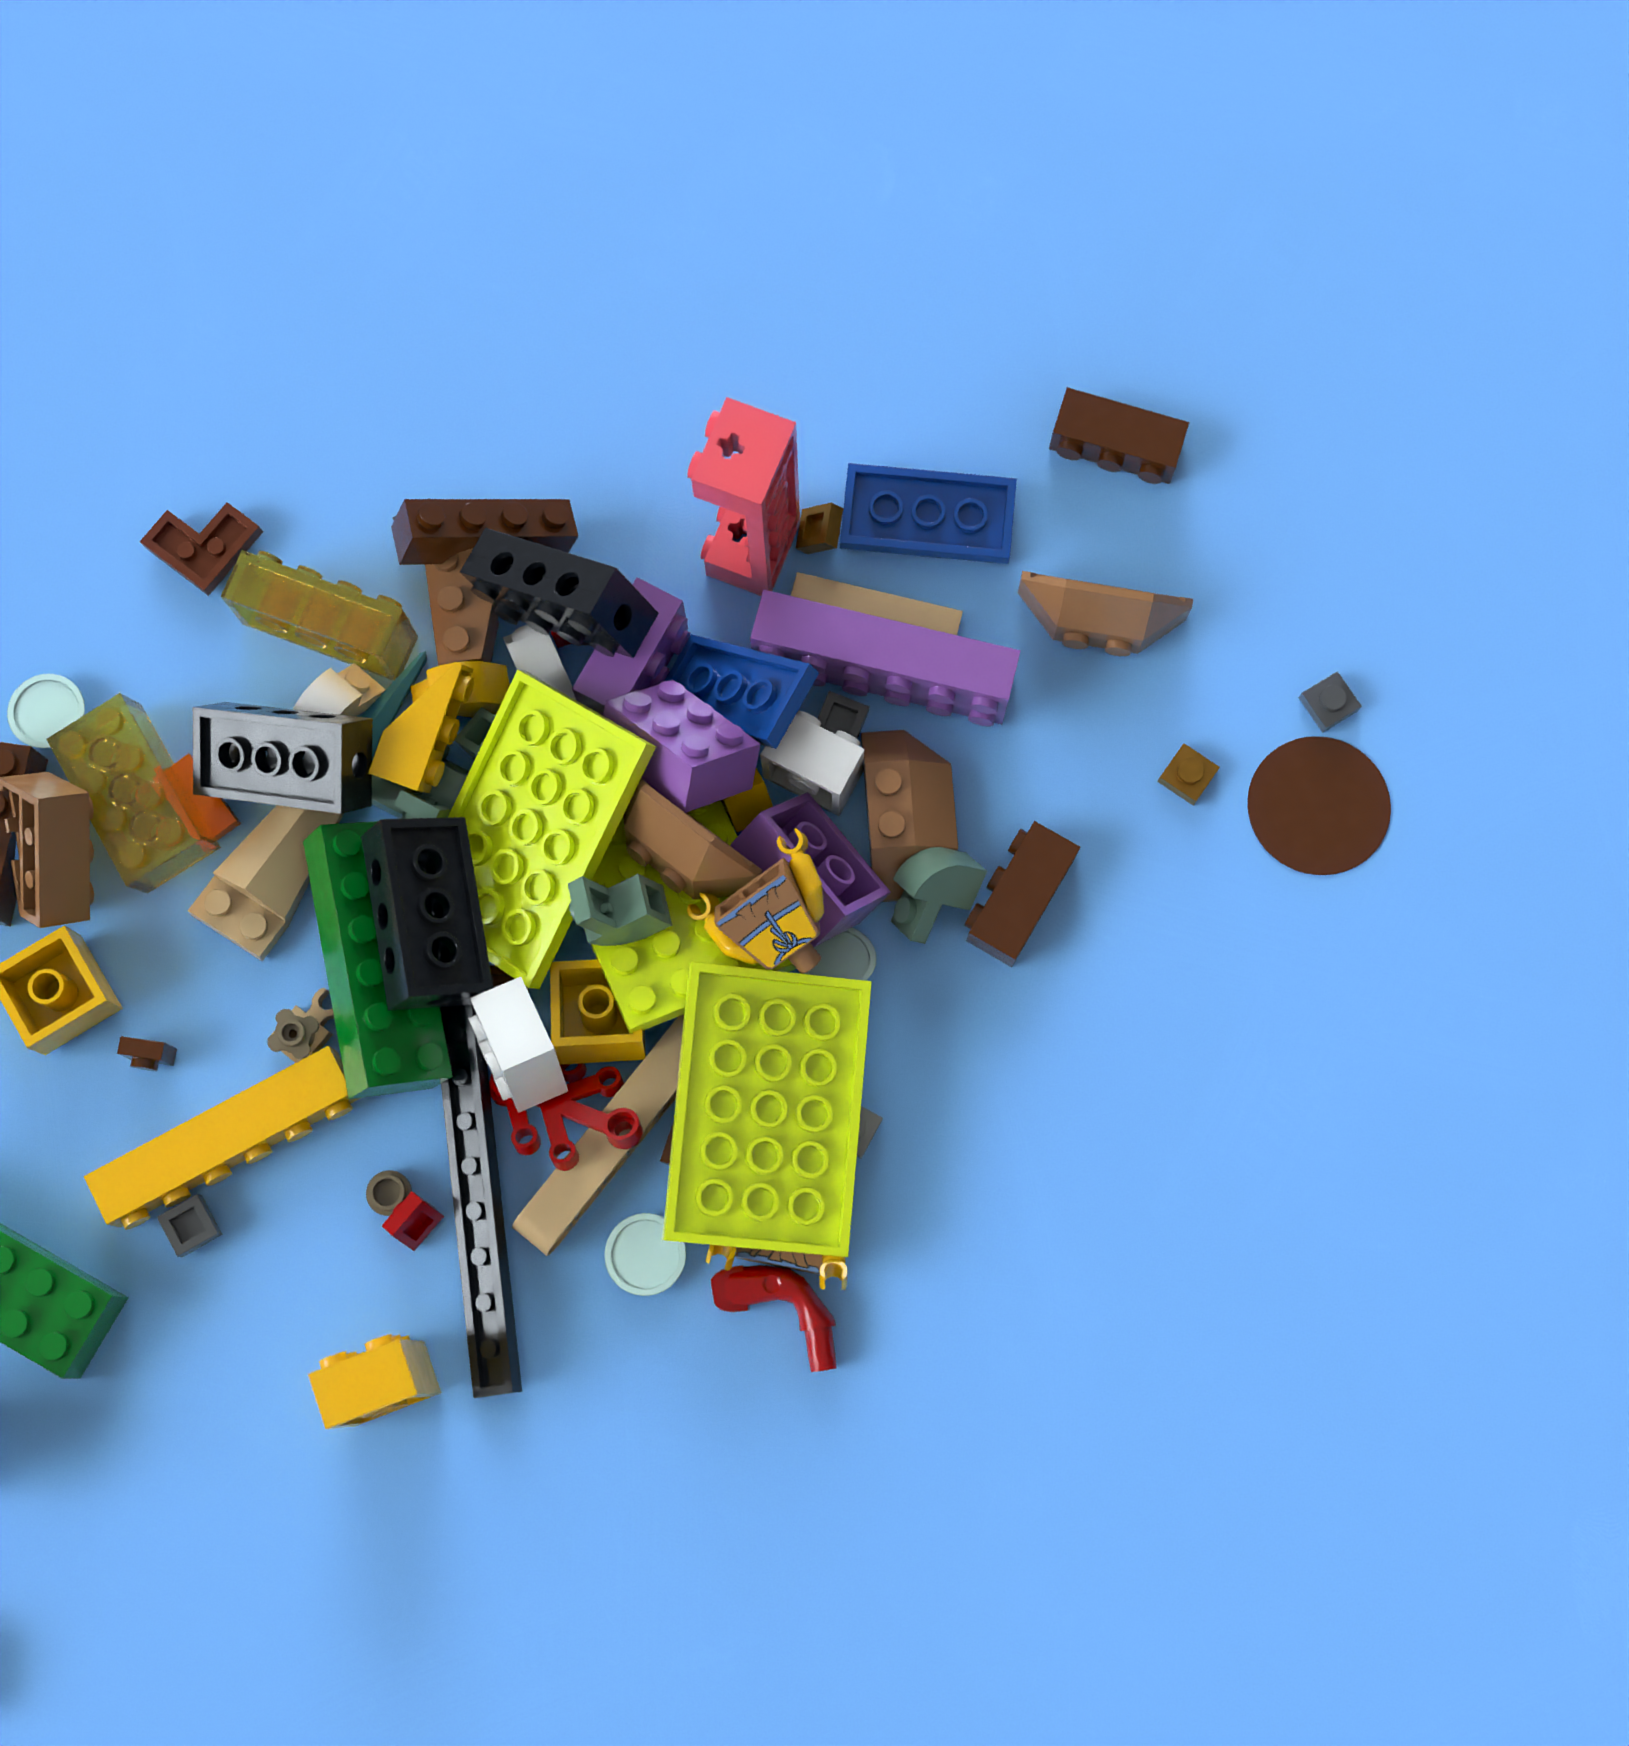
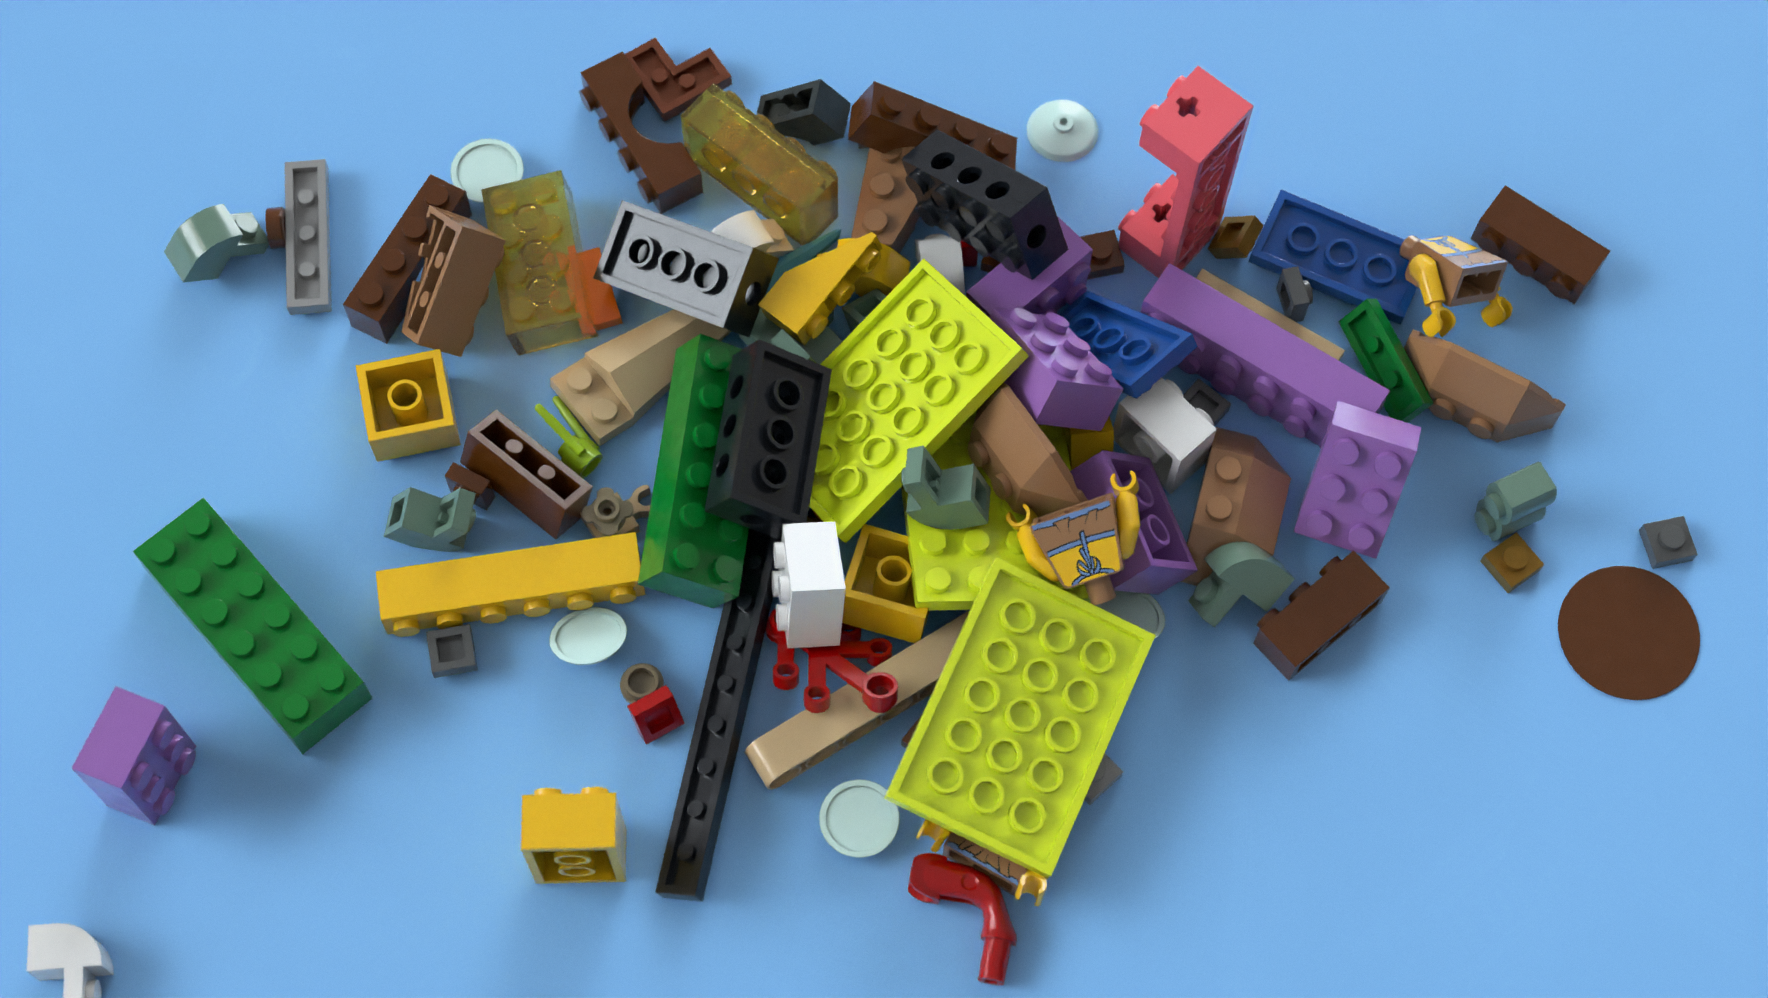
camera: 15 degrees right, 10 degrees down
(119, 1100) = (431, 521): none -> sand green brick
(151, 585) = (663, 169): none -> reddish brown arch
(197, 1021) = (526, 474): none -> reddish brown brick
(243, 980) = (578, 450): none -> lime plant
(318, 1164) = (588, 636): none -> light aqua piece
(347, 541) = (807, 112): none -> pearl dark grey arch
(612, 469) = (1062, 130): none -> light aqua piece
(692, 588) = (1106, 254): none -> reddish brown plate
(895, 569) = (1294, 293): none -> dark grey plate
(1005, 610) = (1385, 360): none -> green plate
(1016, 750) = (1357, 479): none -> medium lavender brick
(1043, 504) = (1454, 275): none -> torso
(1174, 717) = (1515, 501): none -> sand green brick

